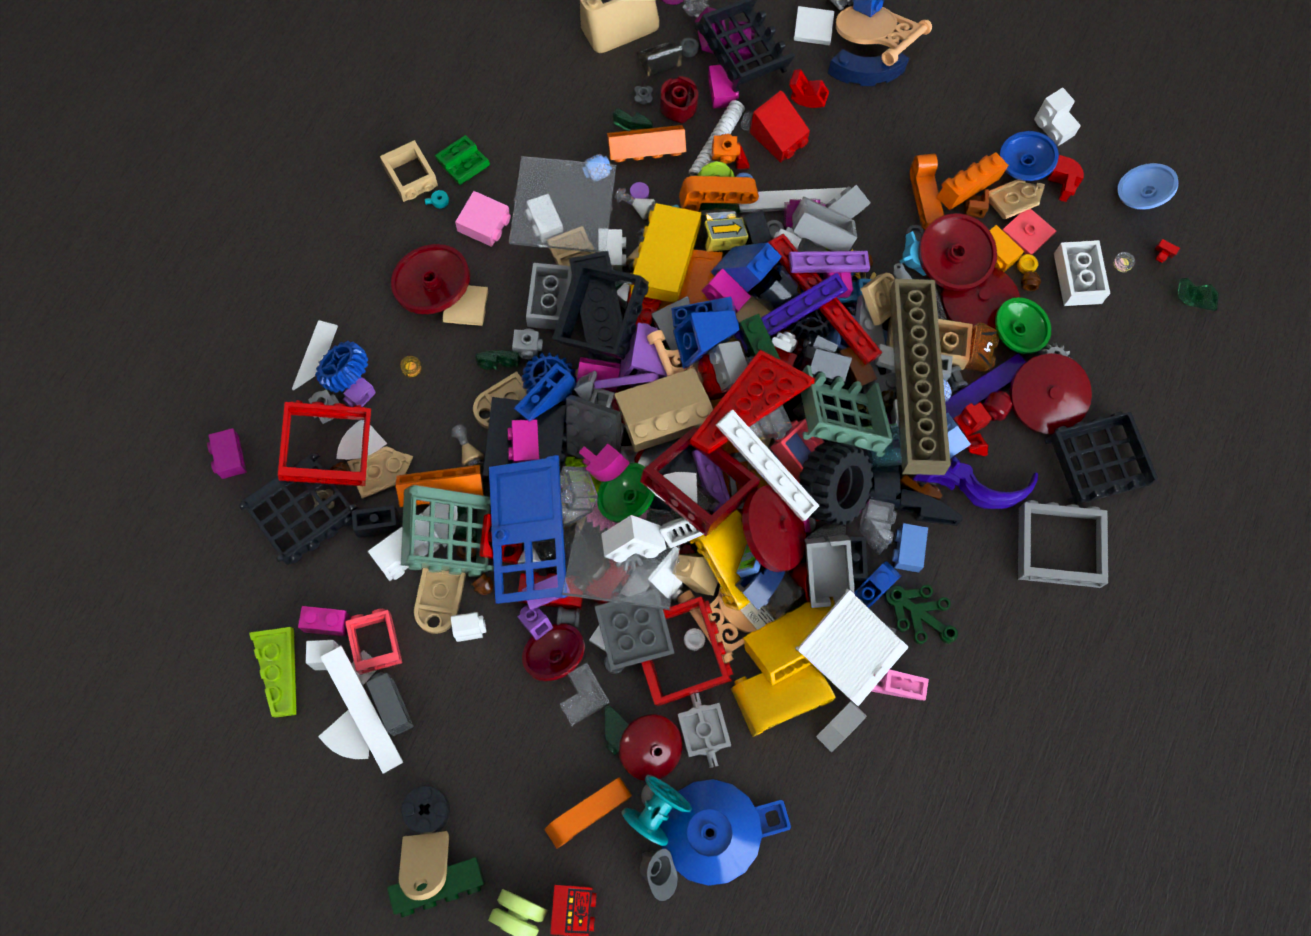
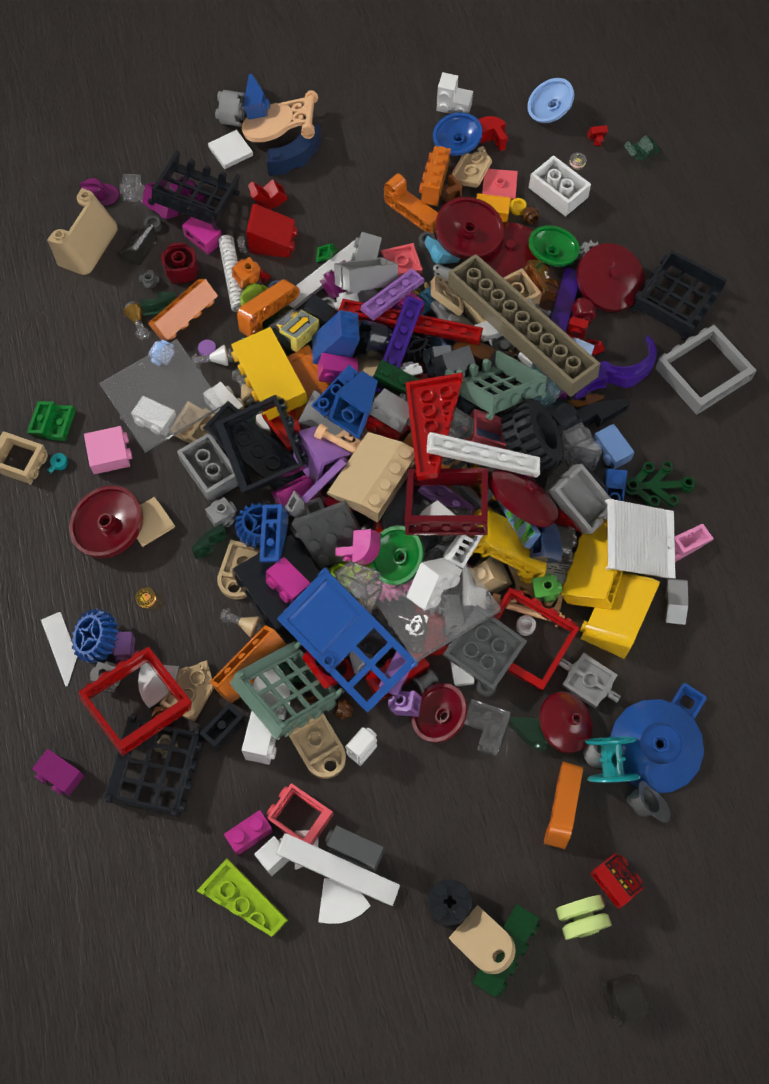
camera: 35 degrees left, 5 degrees down
(604, 117) = (134, 313): none -> piece
(731, 615) = (547, 595): none -> bright green brick
(814, 180) = (325, 252): none -> green slope
(874, 237) = (405, 257): none -> coral plate

